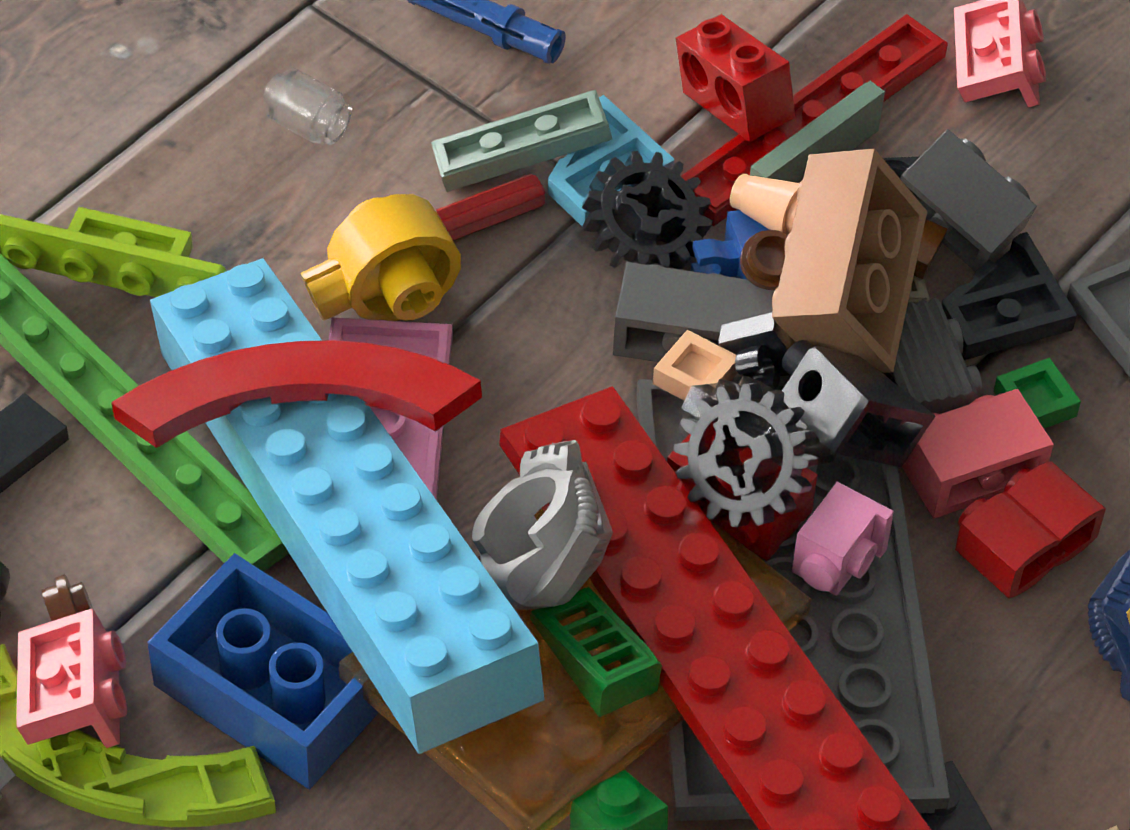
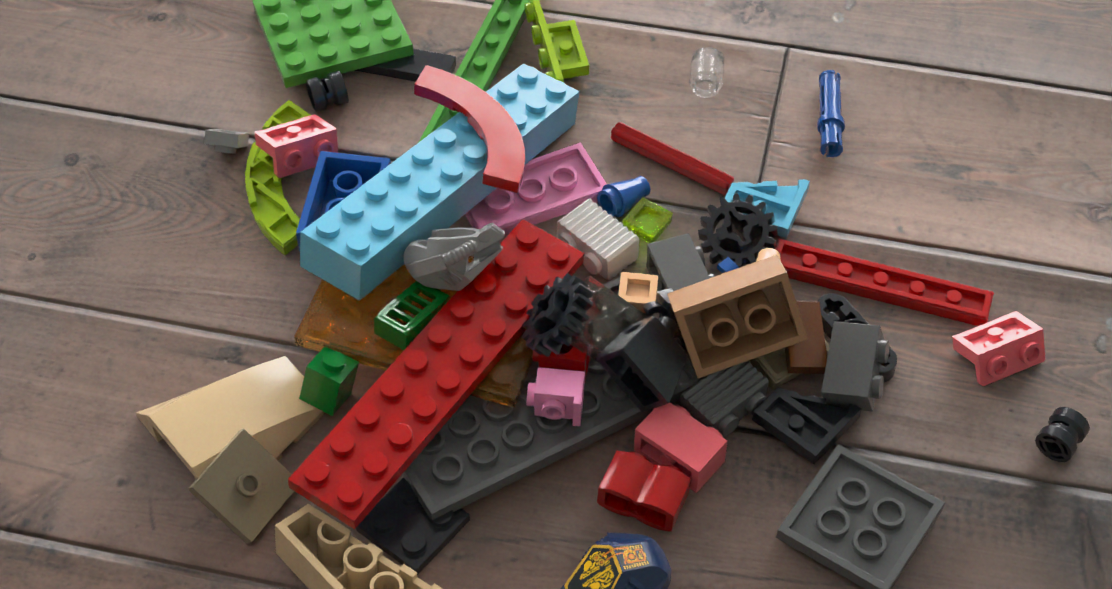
camera: 65 degrees right, 0 degrees up
(65, 599) = (345, 123): reddish brown plate -> none
(386, 262) = (617, 140): yellow piece -> none
(478, 317) = (623, 195): none -> blue cone
(521, 140) = (750, 162): sand green tile -> none
(540, 372) = (604, 240): none -> white brick
(544, 307) = (648, 220): none -> clear neon green plate
(735, 77) = (863, 227): red brick -> none
(835, 130) = (859, 289): sand green tile -> none
(1043, 390) = (745, 461): green plate -> none

